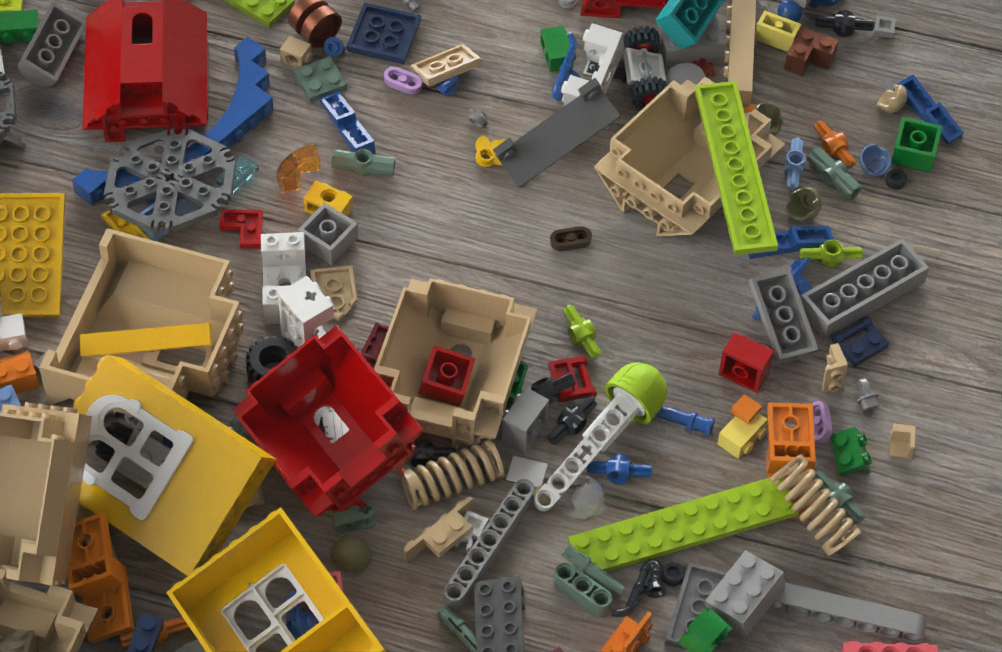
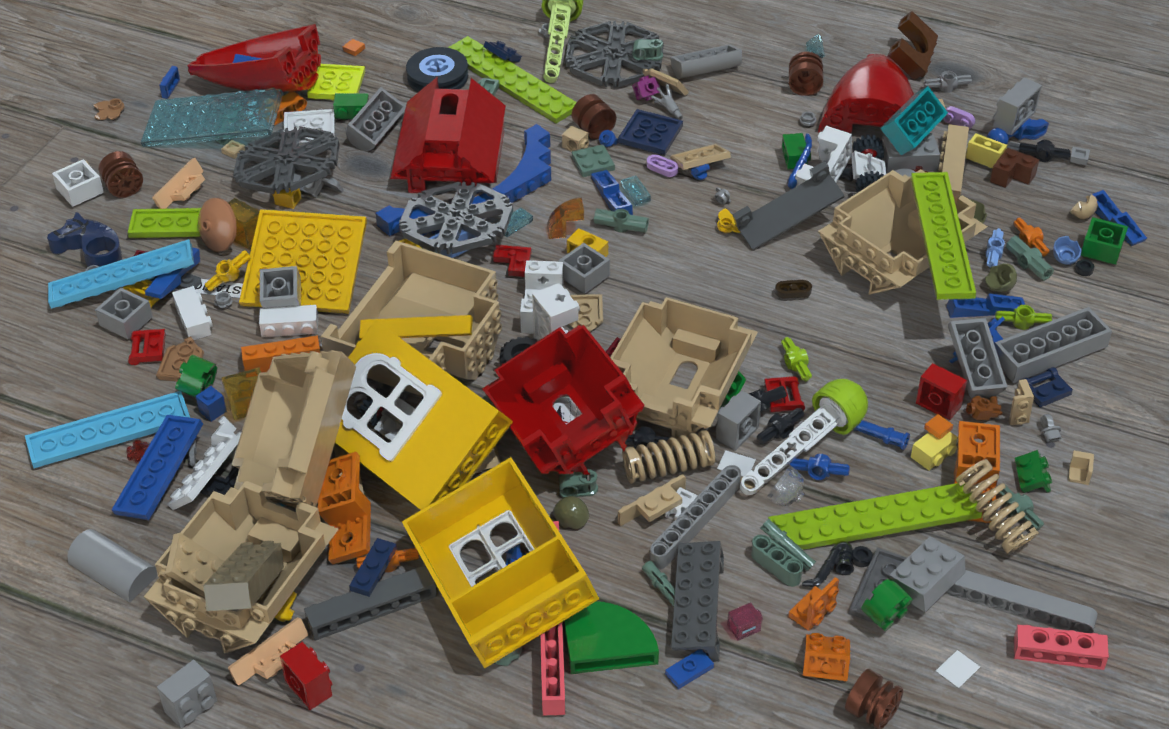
camera: 10 degrees right, 10 degrees down
(375, 118) = (635, 190): none -> clear light blue plate
(446, 376) = (672, 378): red brick -> none
(793, 378) = (983, 409): none -> dark orange piece
(822, 422) = (1007, 446): lavender plate -> none

